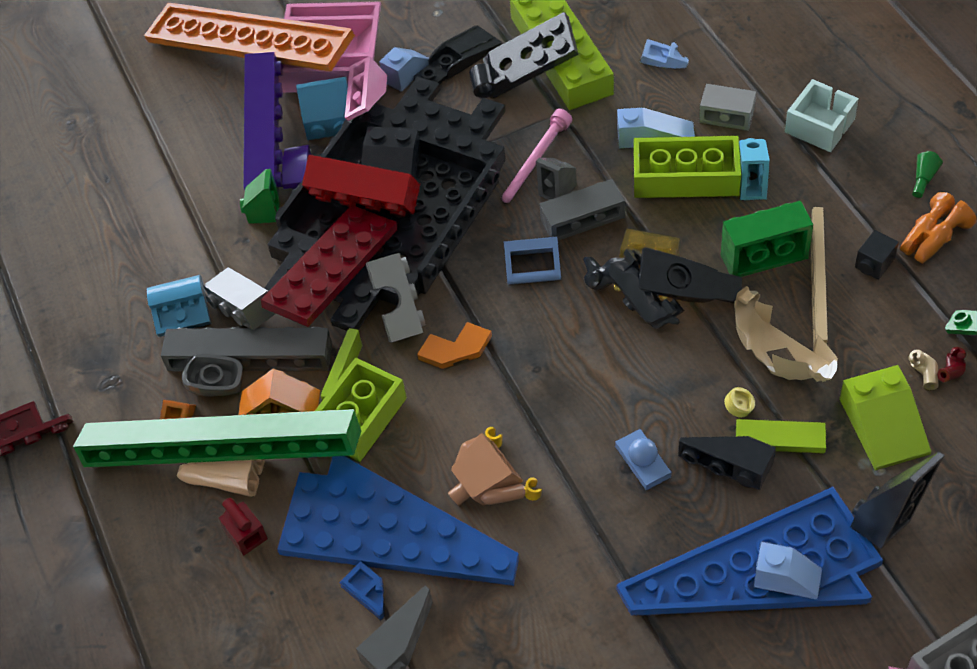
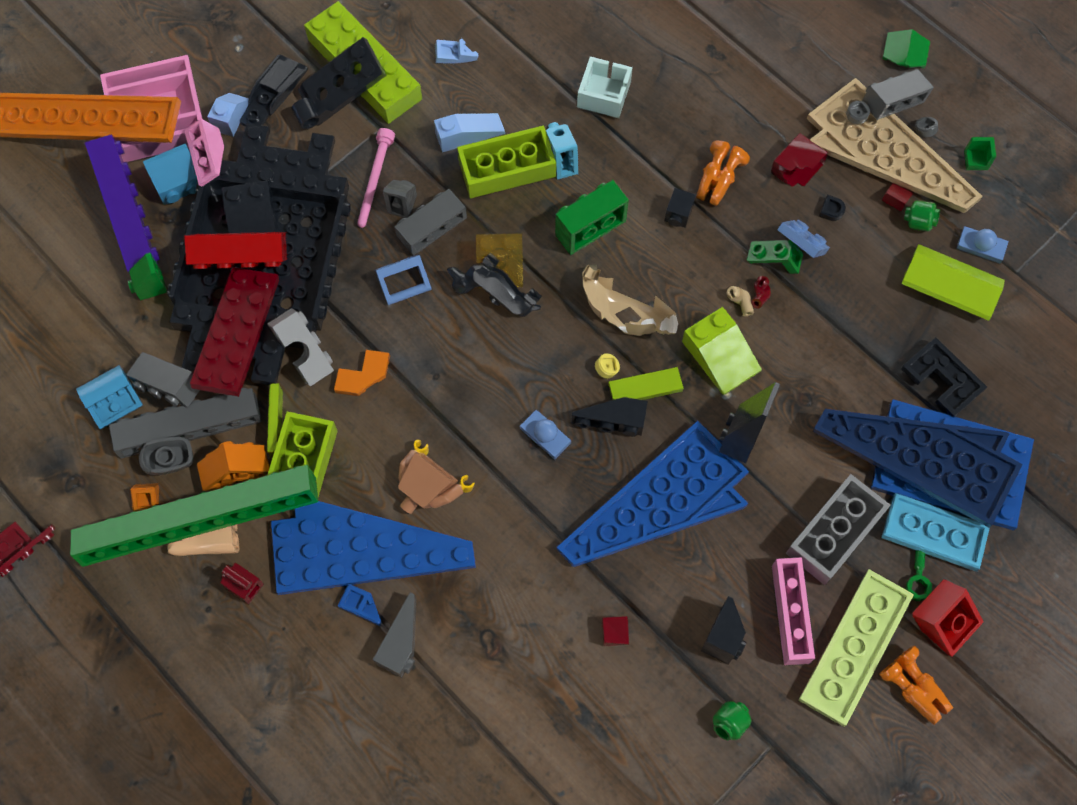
camera: 25 degrees left, 15 degrees up
(294, 166) = (165, 236): dark purple slope -> none
(685, 279) = (536, 269): black piece -> none
(727, 107) = (524, 93): light grey brick -> none
(787, 571) = (682, 503): light blue slope -> none
(818, 277) = (641, 243): tan tile -> none
(927, 166) = (699, 115): green cone -> none

